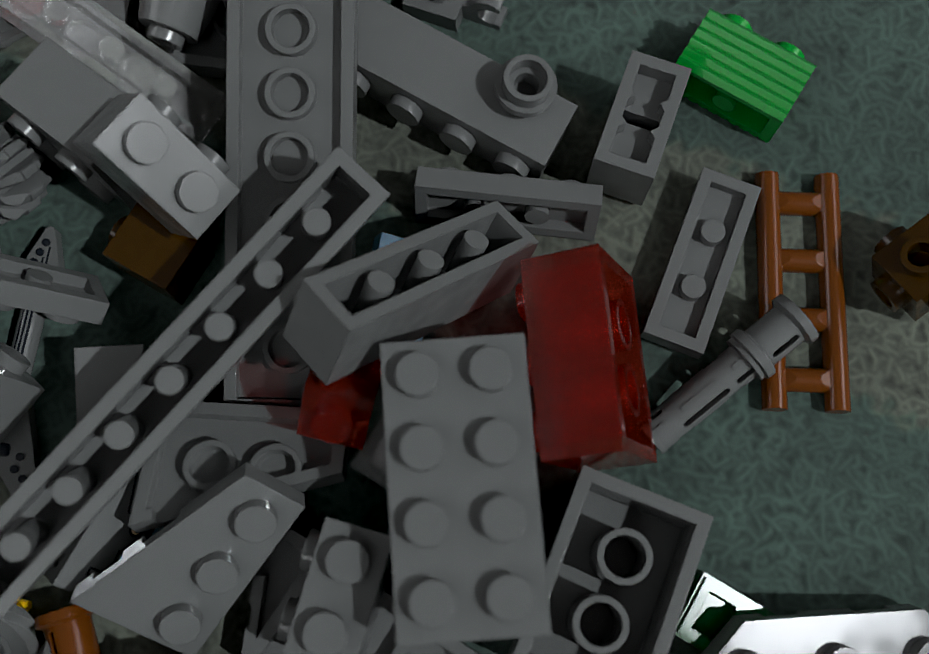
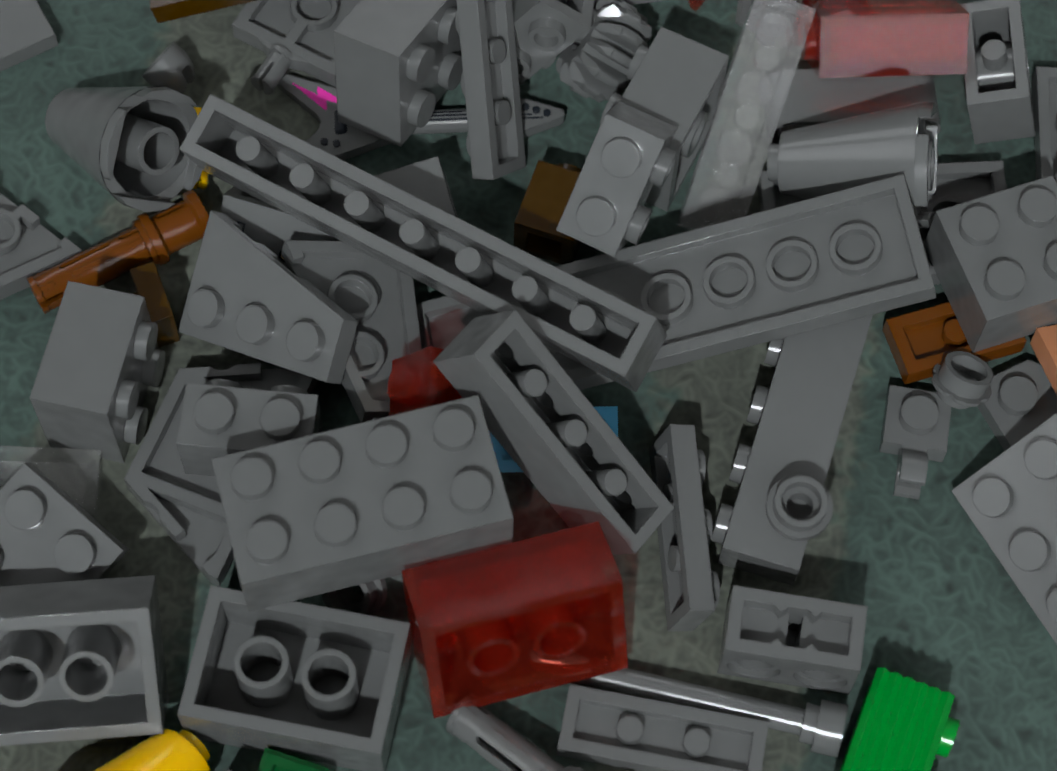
camera: 75 degrees right, 10 degrees down
(706, 129) = (816, 724): none -> dark grey piece

